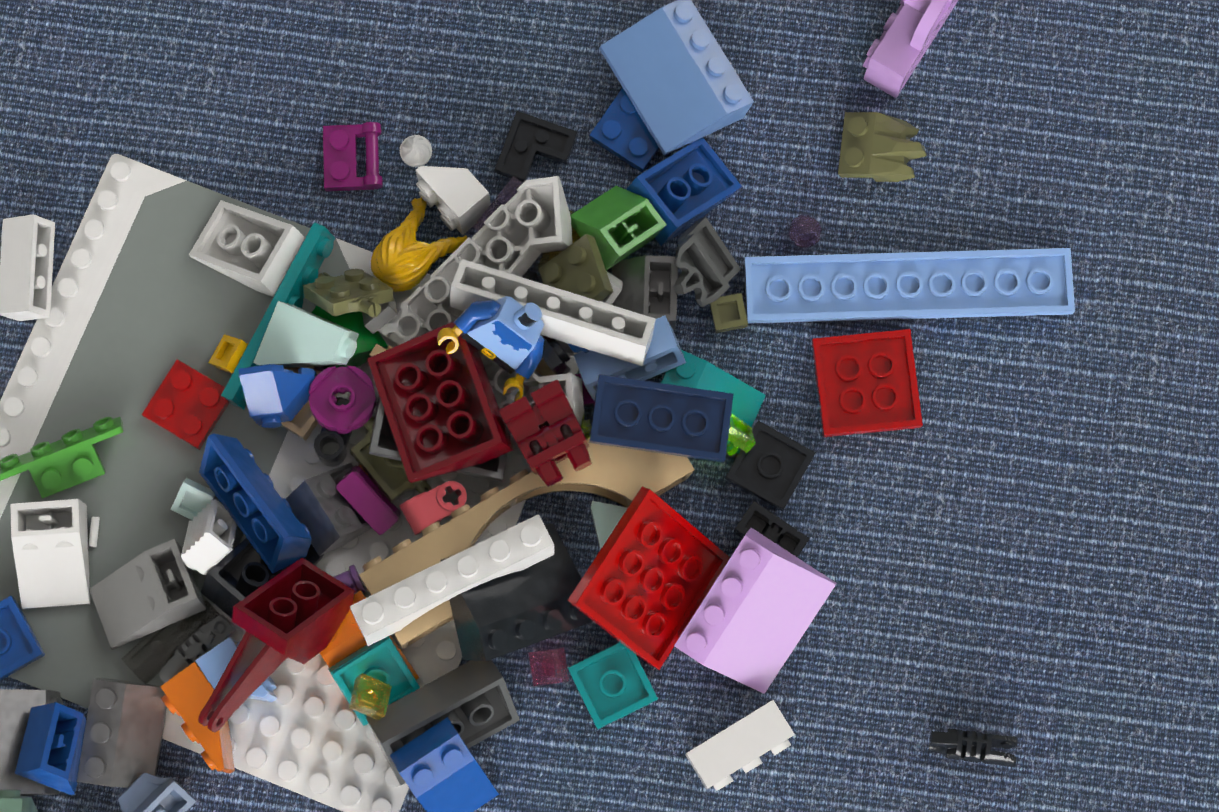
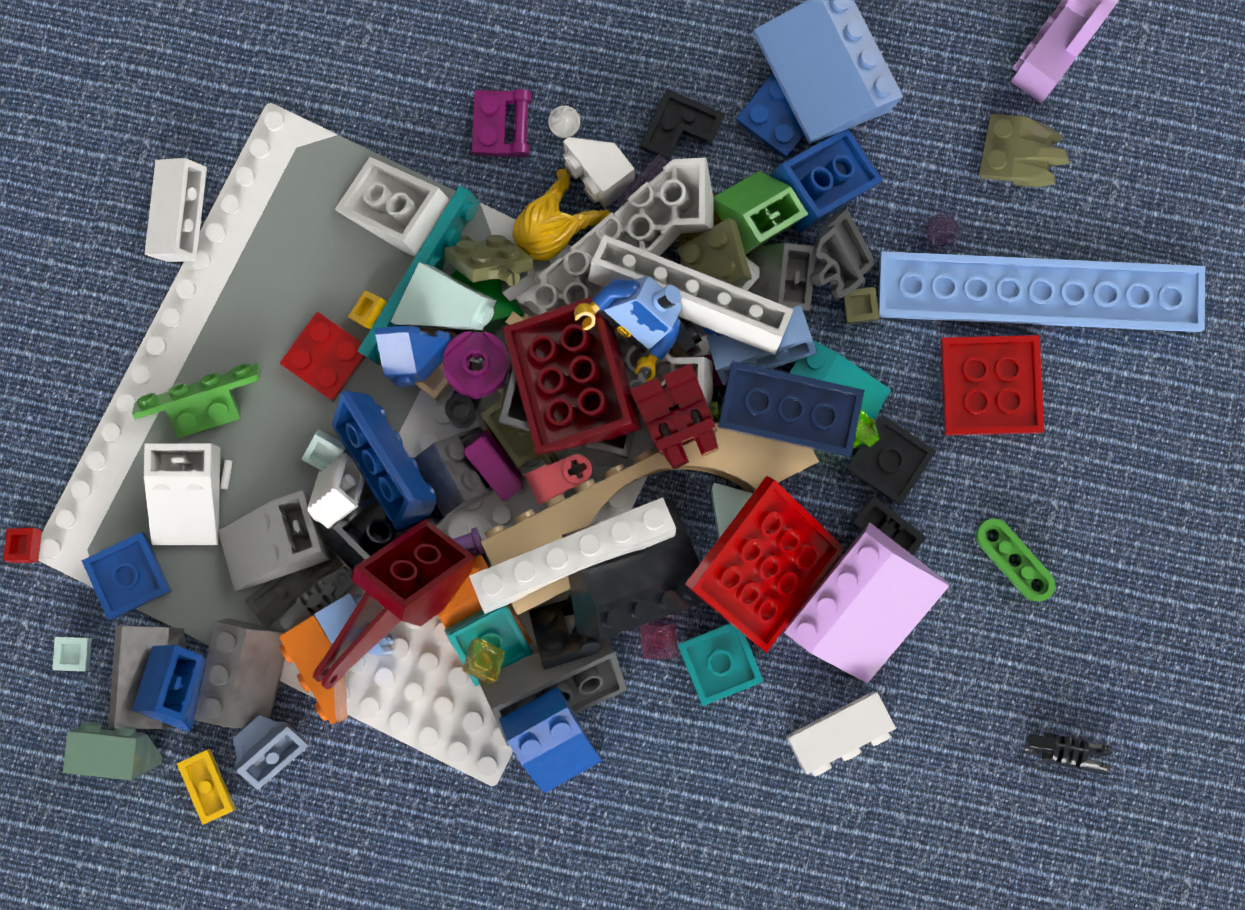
camera: 10 degrees right, 5 degrees up
(440, 667) = (554, 637): none -> black plate
(918, 564) = (1028, 566): none -> bright green plate

